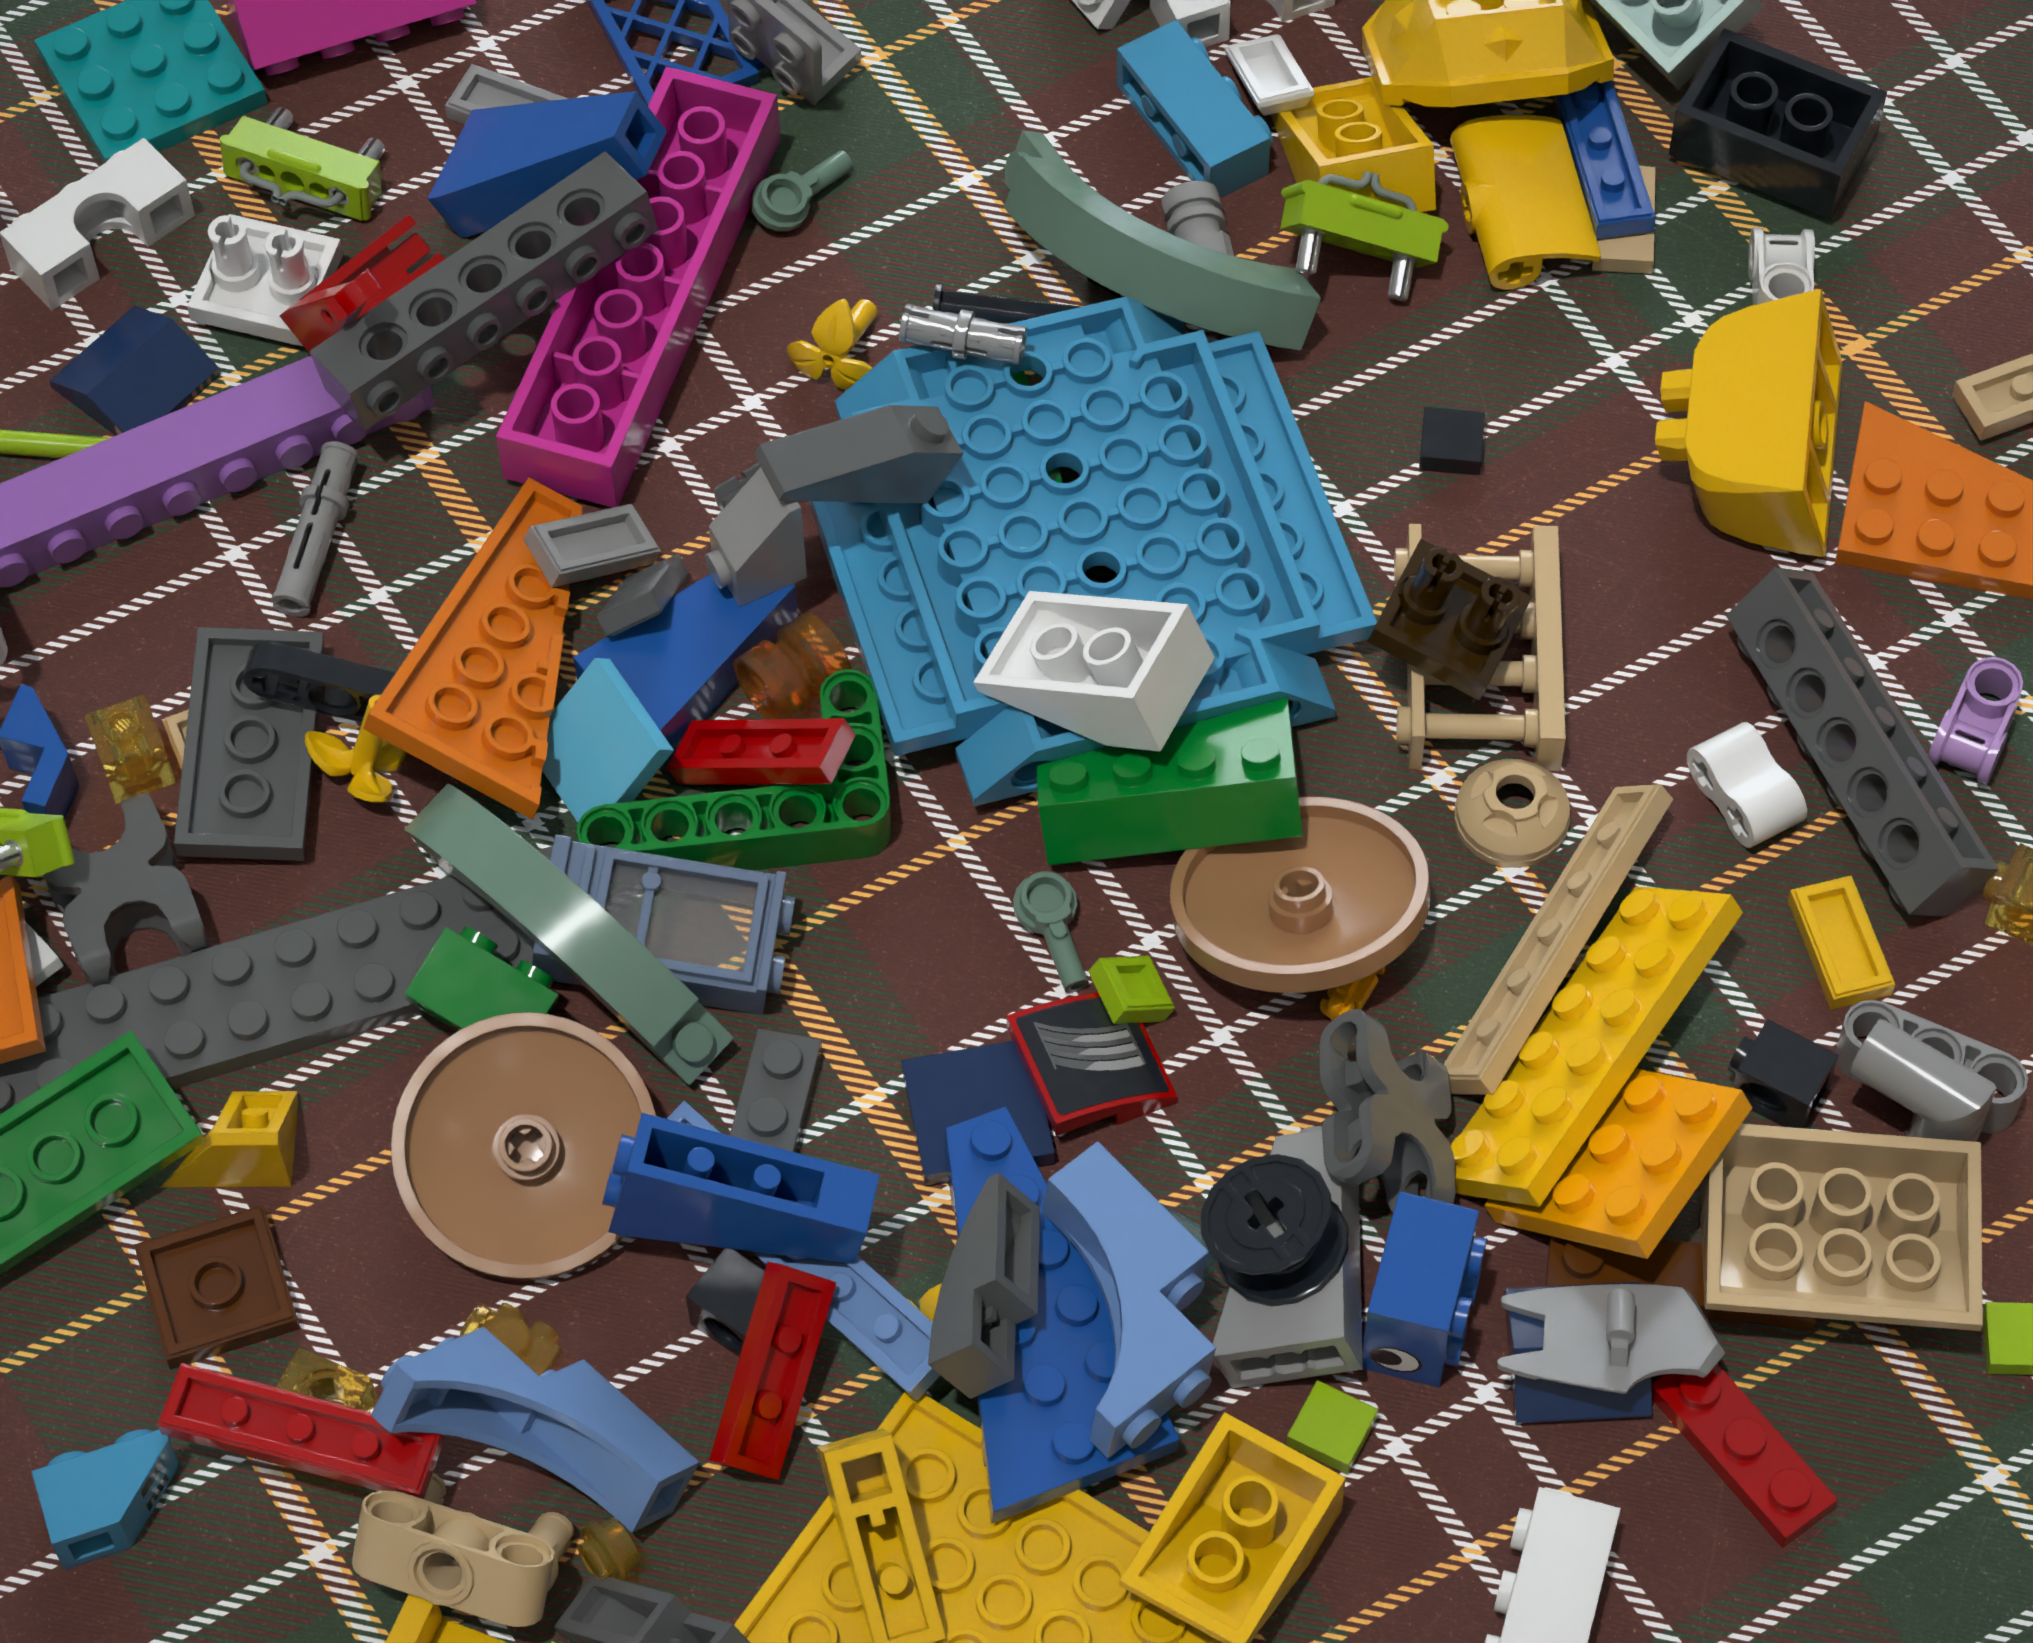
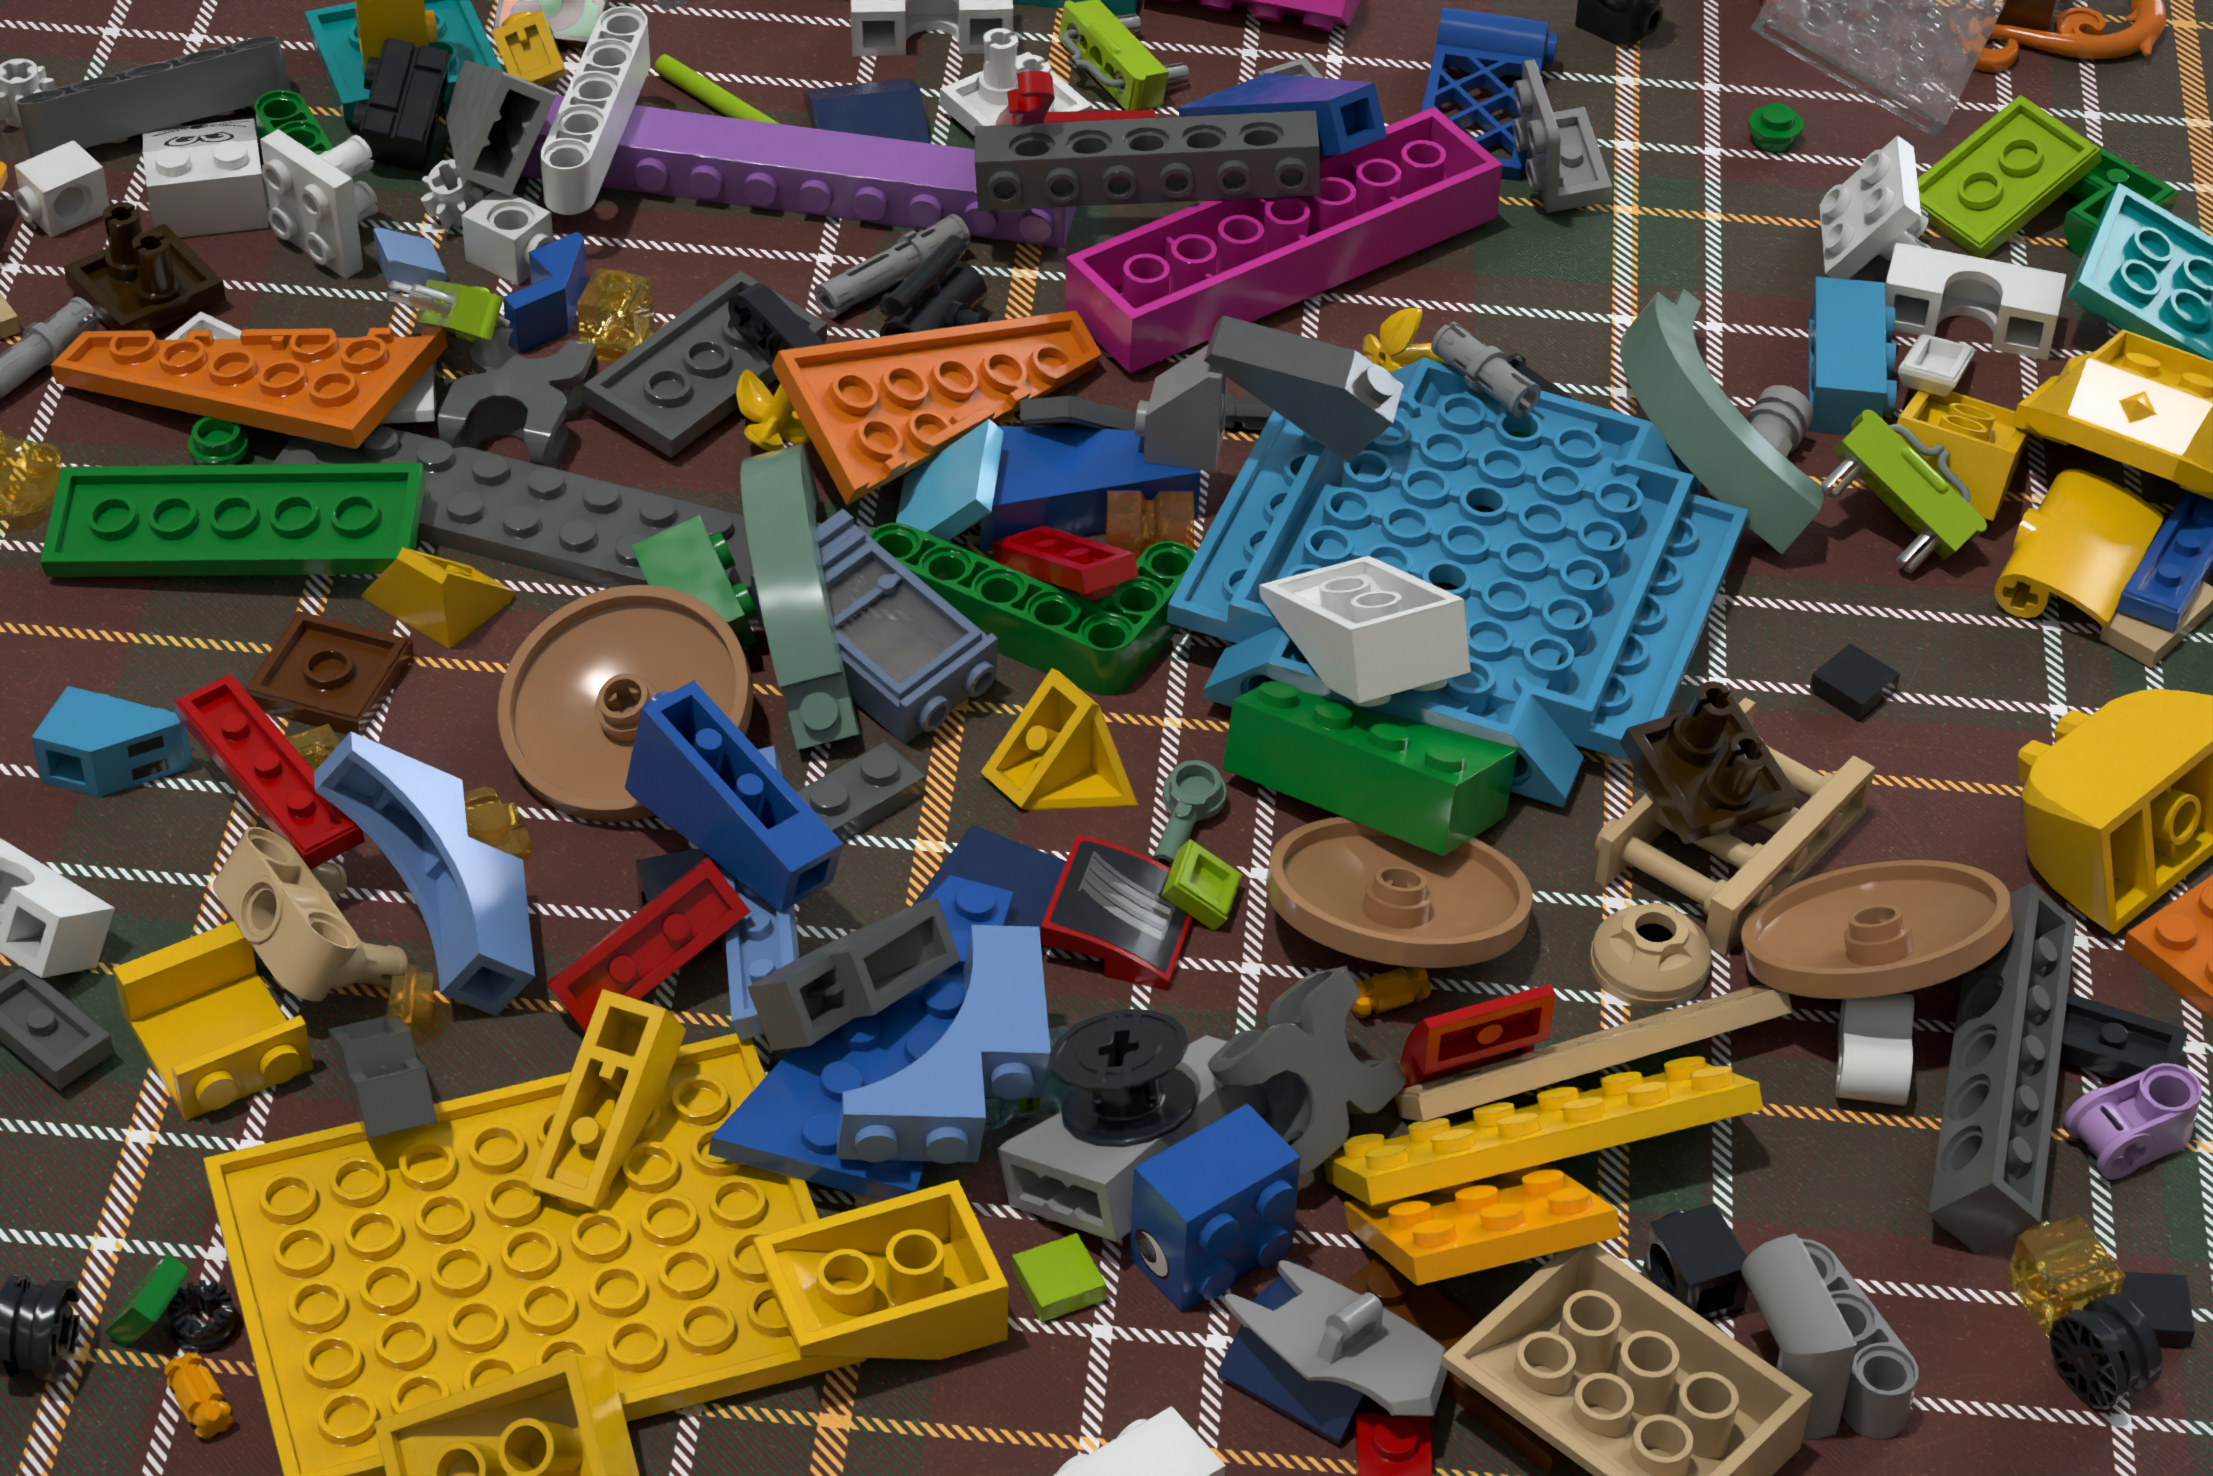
camera: 35 degrees right, 15 degrees down
(401, 555) = (936, 294): none -> black pin
(591, 545) = (1076, 371): light grey tile -> none
(784, 198) = (1458, 250): sand green plate -> none
(914, 944) = (1060, 753): none -> yellow slope
(1482, 991) = (1477, 1035): none -> red slope
(1685, 683) = (1877, 929): none -> medium nougat dish
(1841, 942) = (1857, 1207): yellow tile -> none
(1918, 655) = (2116, 1039): none -> black plate

